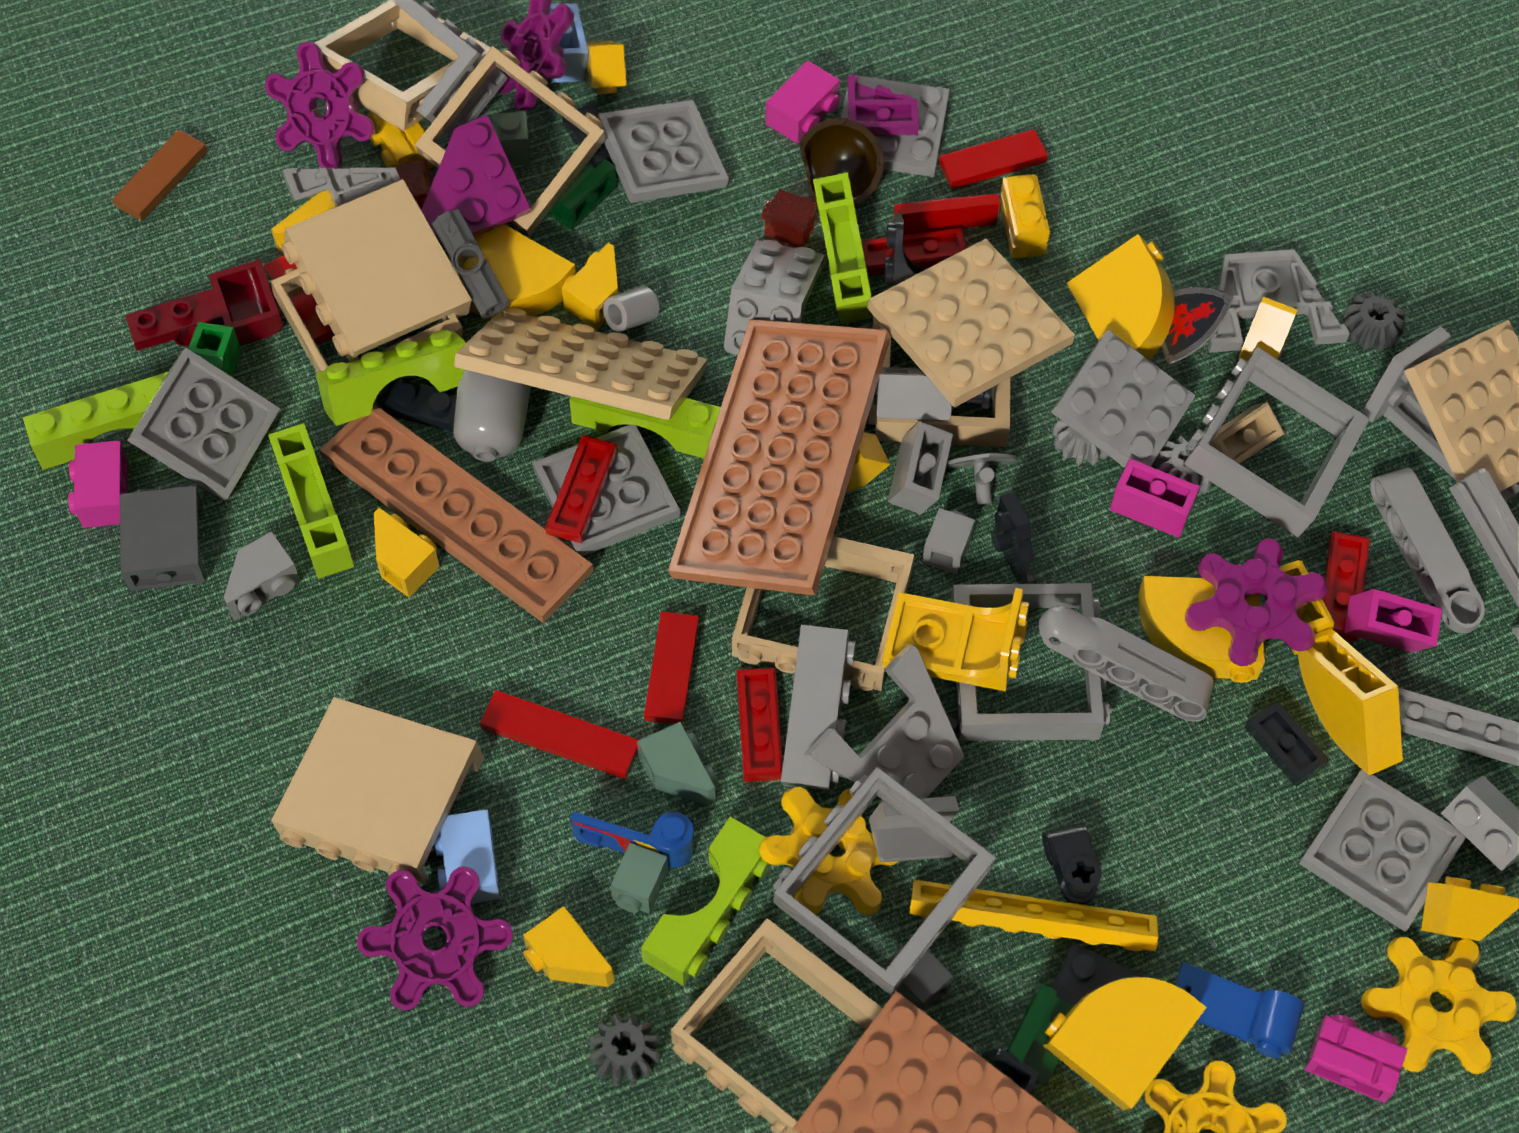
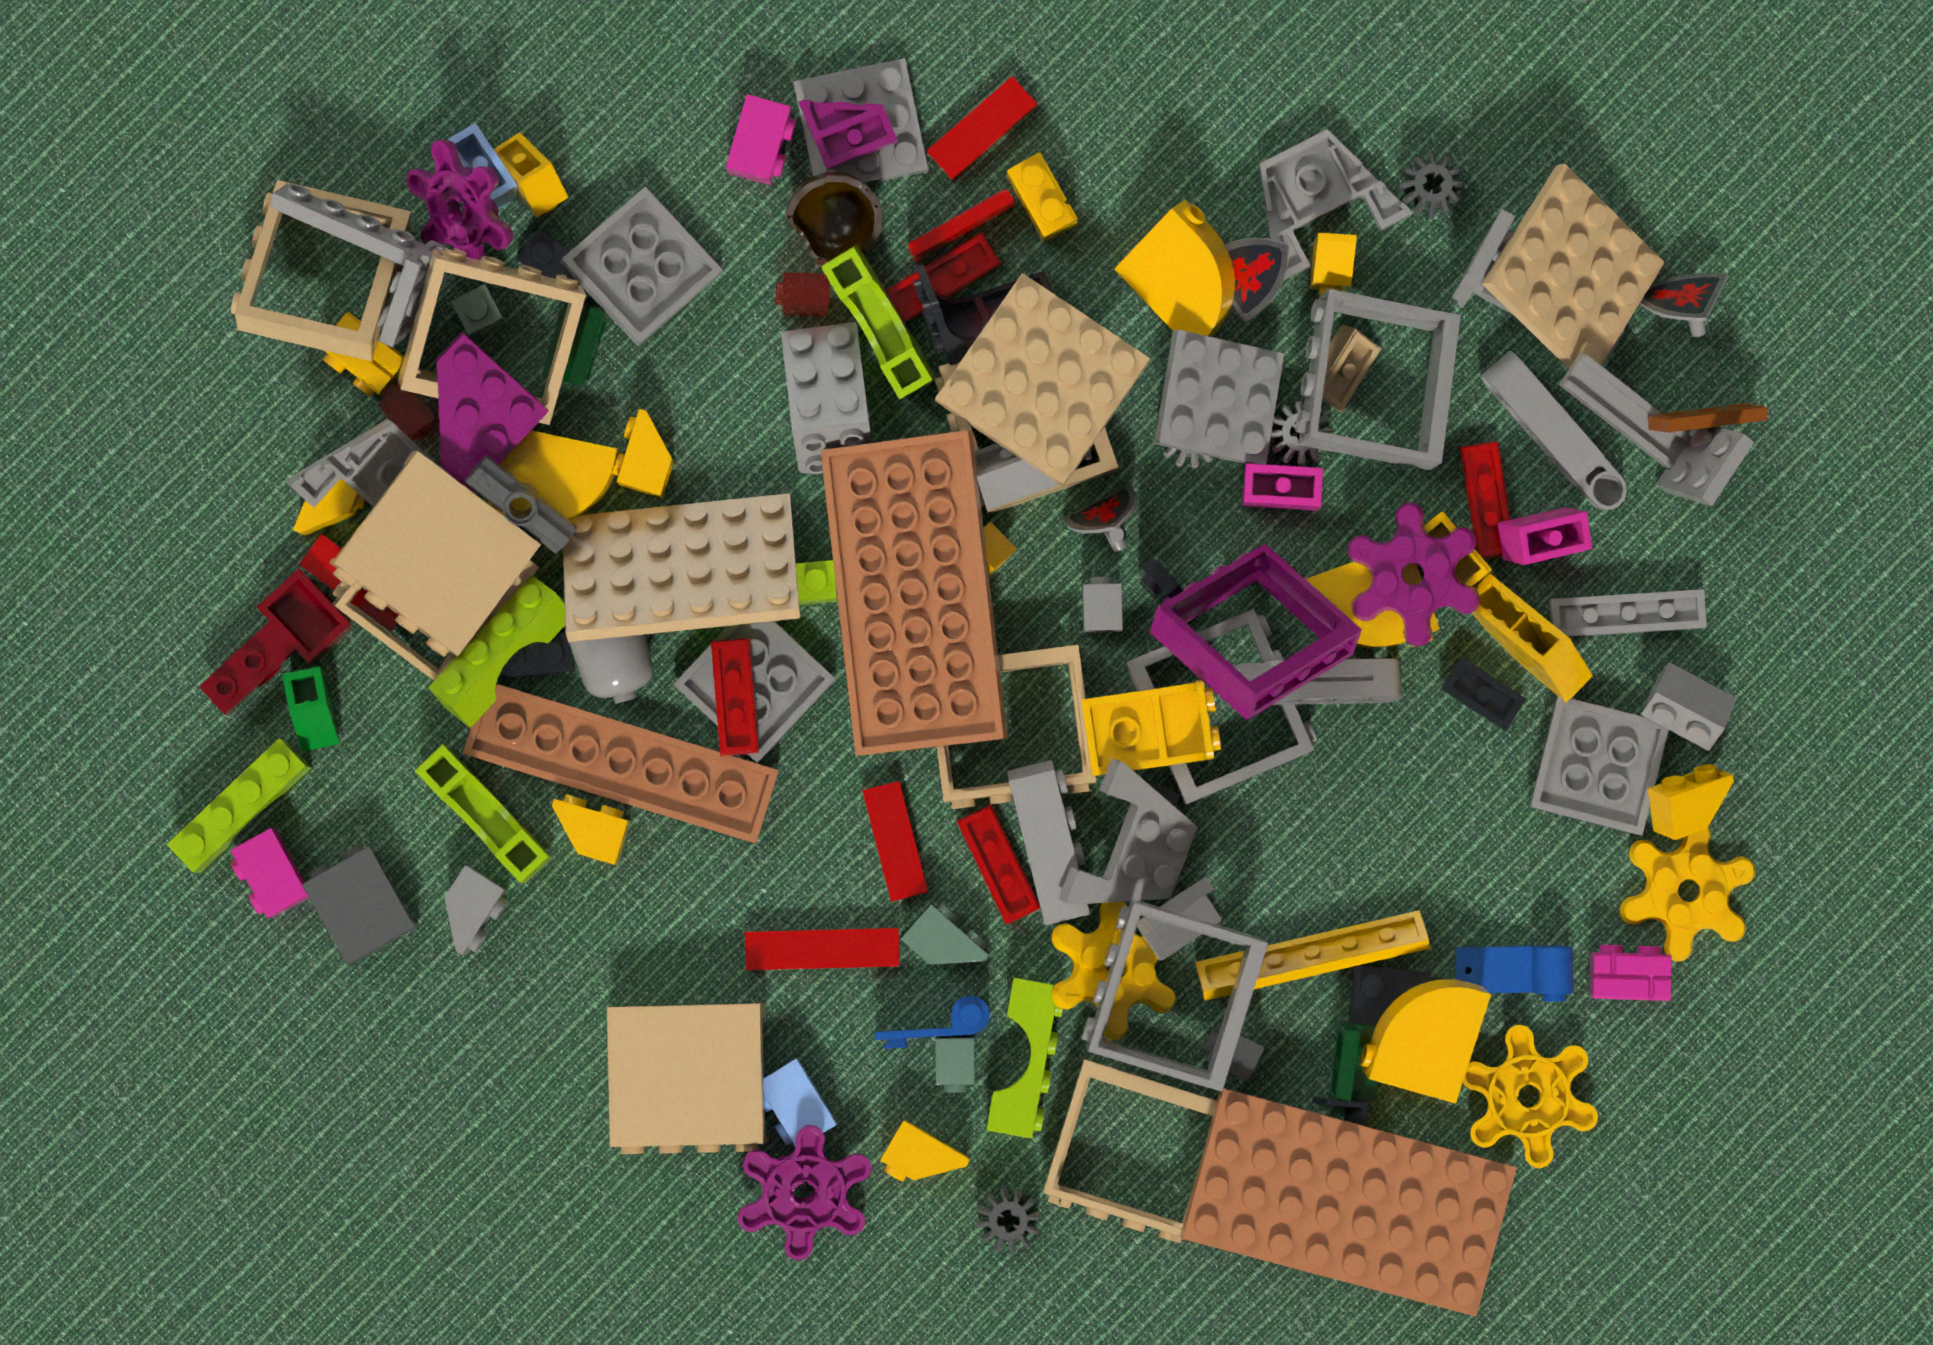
camera: 20 degrees left, 25 degrees up
(160, 175) = (135, 496): dark orange tile -> none
(204, 424) = (343, 778): light grey plate -> none
(301, 98) = (259, 383): magenta plate -> none
(631, 308) = (693, 471): light grey brick -> none
(920, 468) = (1047, 543): light grey brick -> none
(1072, 857) = (1323, 883): black piece -> none
(1142, 617) = (1336, 631): none -> magenta window

